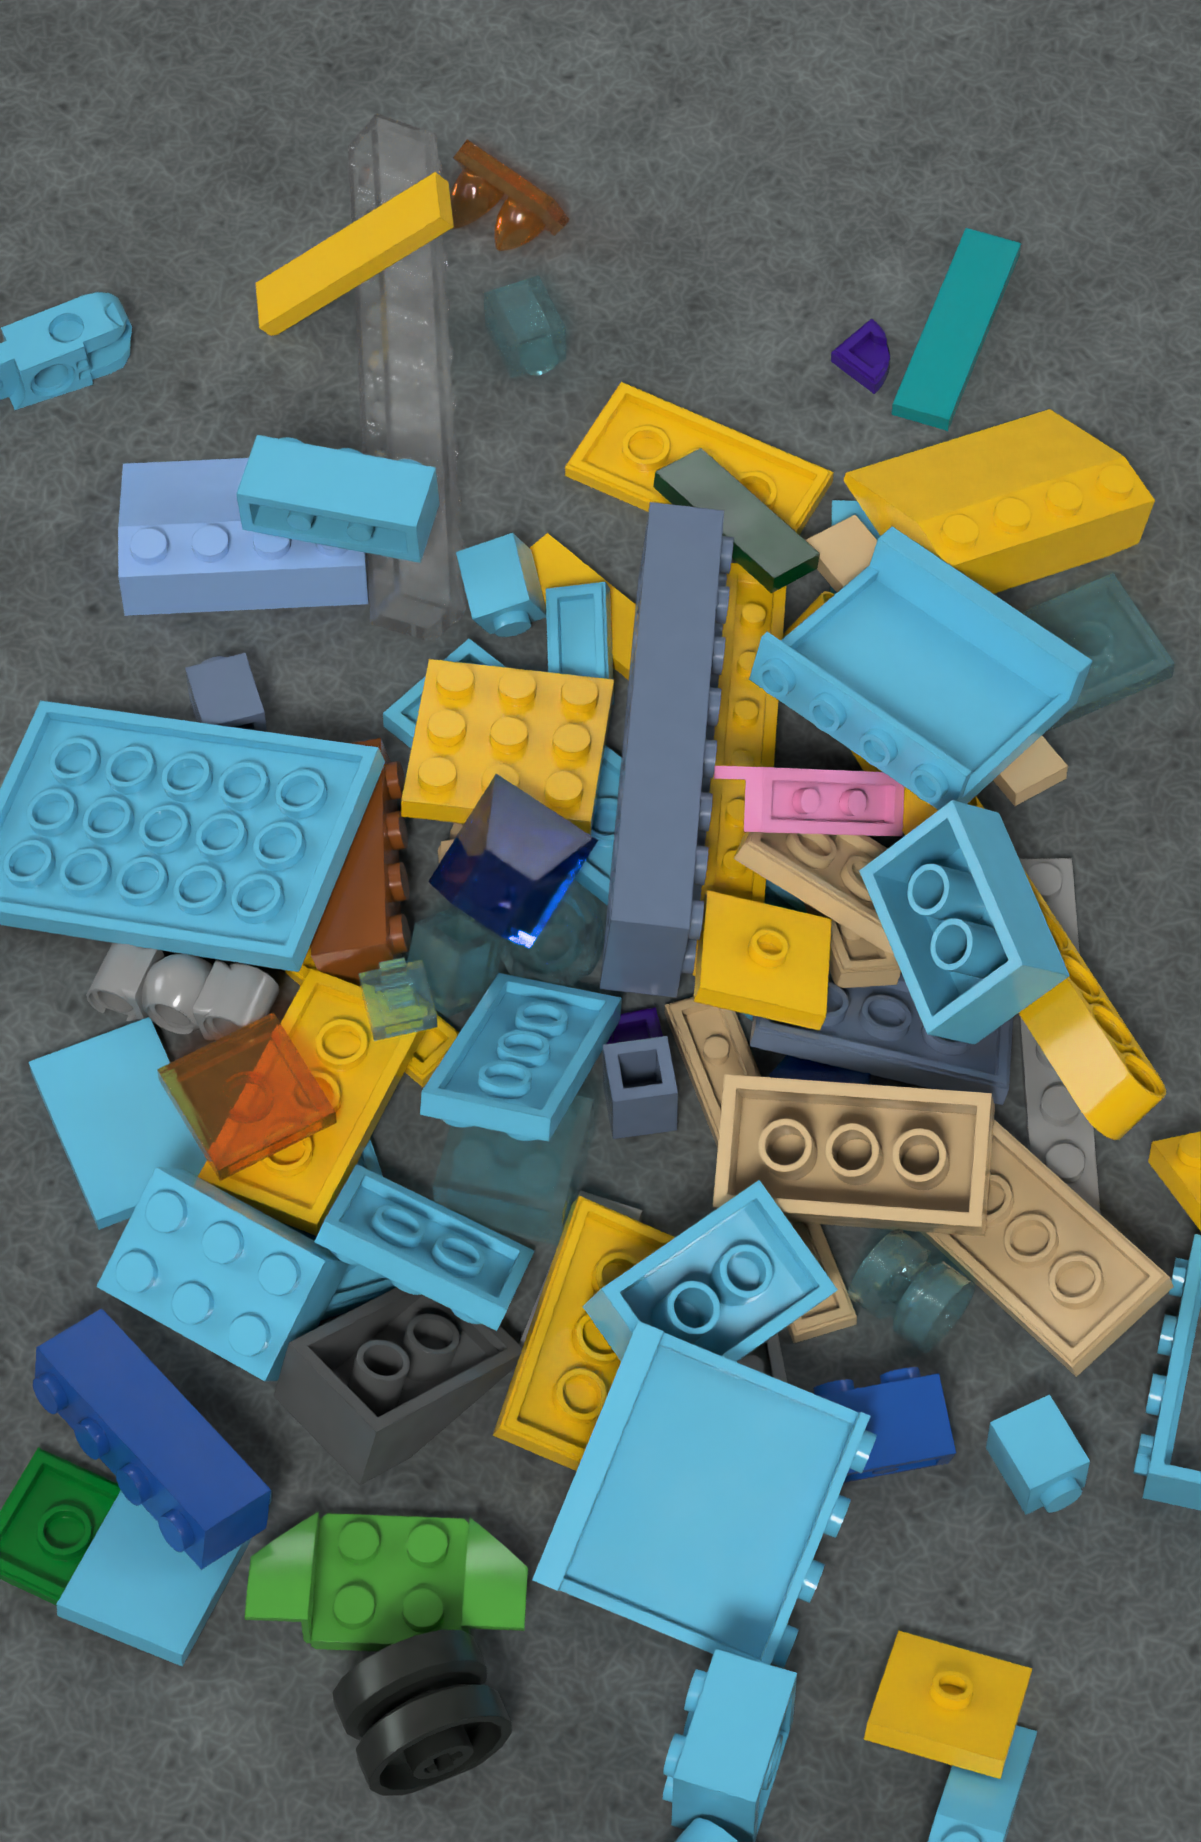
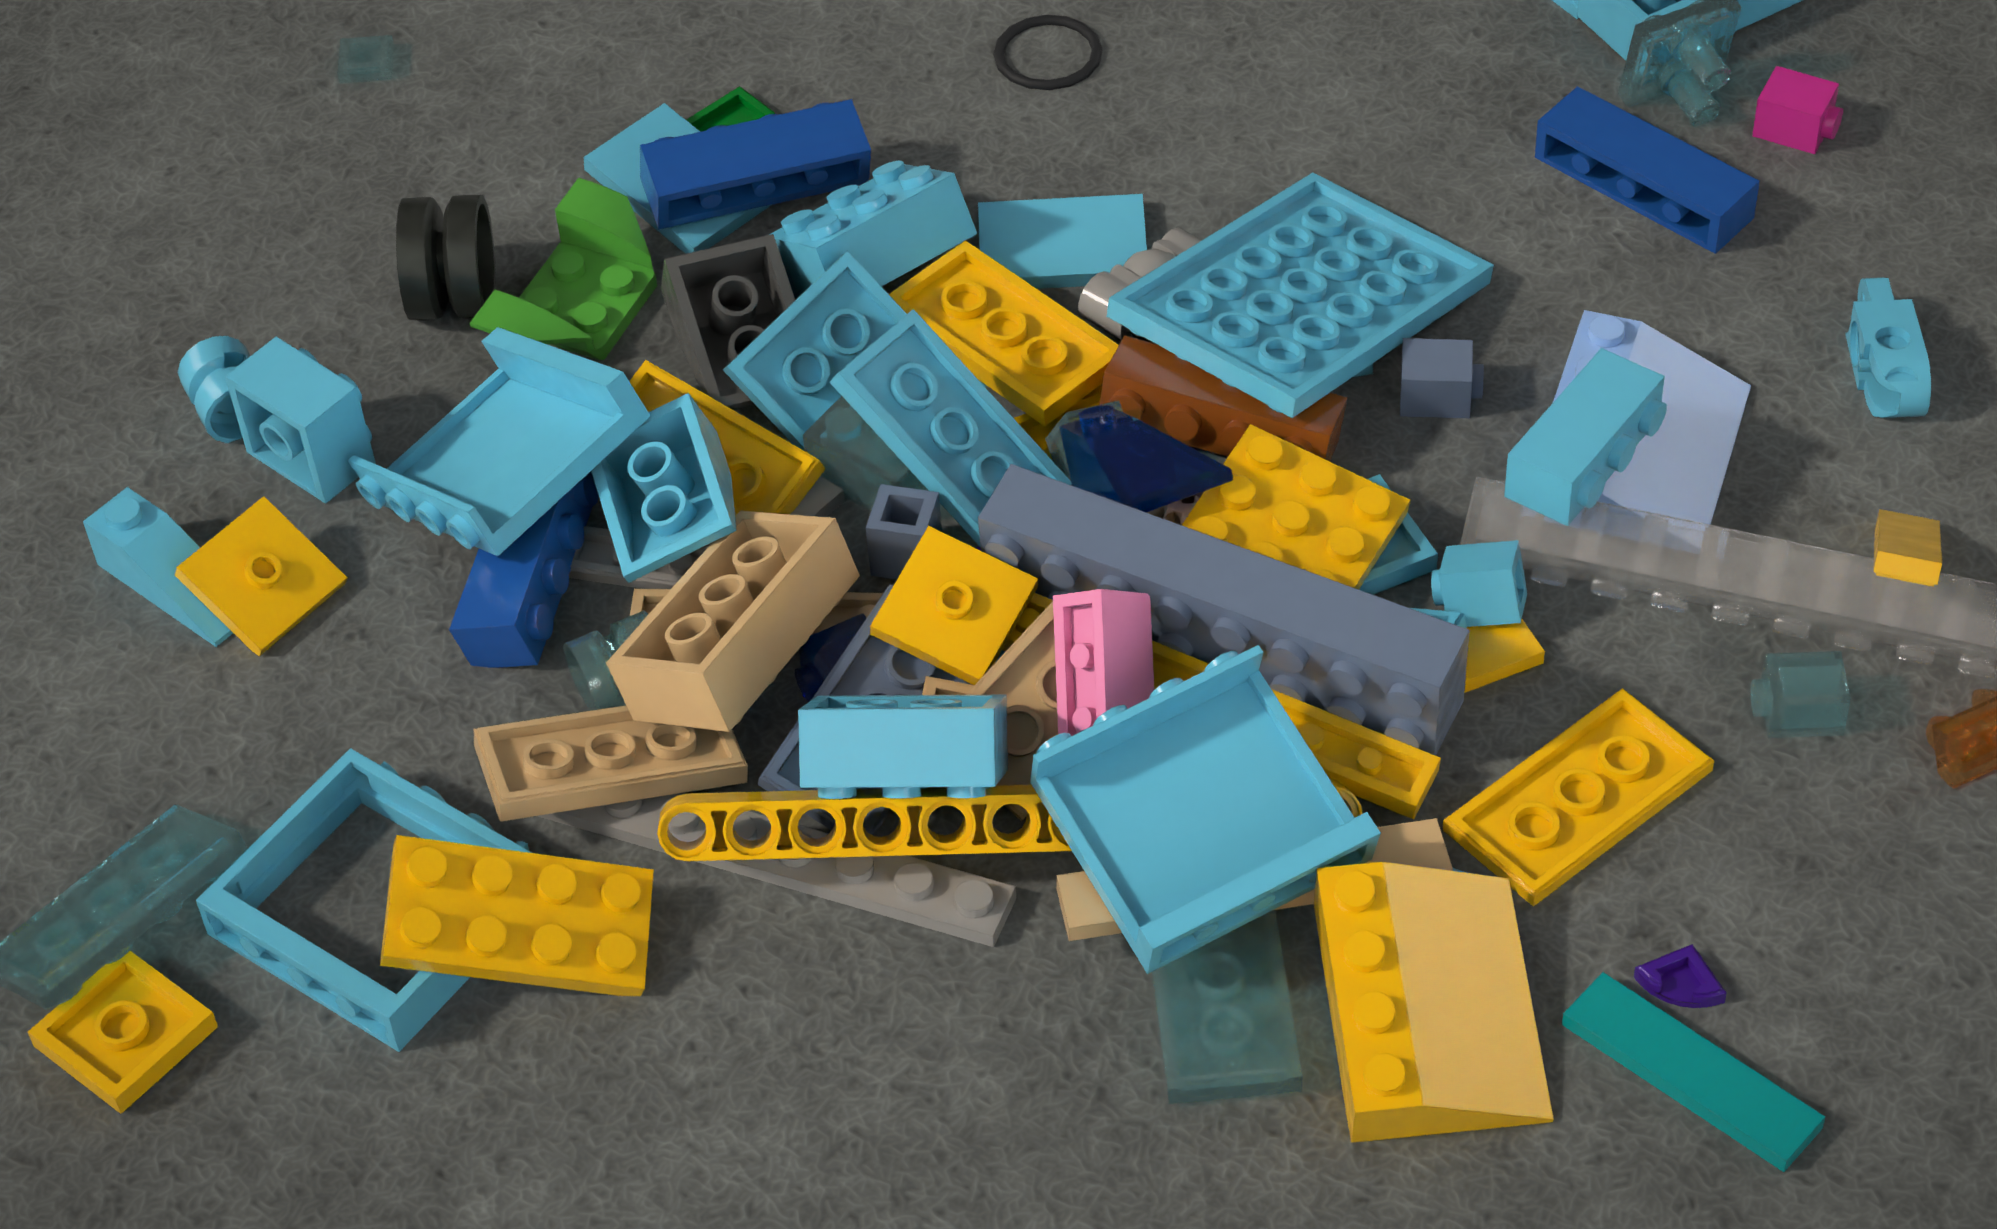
camera: 115 degrees right, 10 degrees down
(246, 1096) = (1016, 274): clear orange tile -> none
(397, 998) = (1058, 383): clear light blue tile -> none
(761, 538) = (1486, 774): tile -> none
(1038, 1456) = (424, 703): medium azure brick -> none

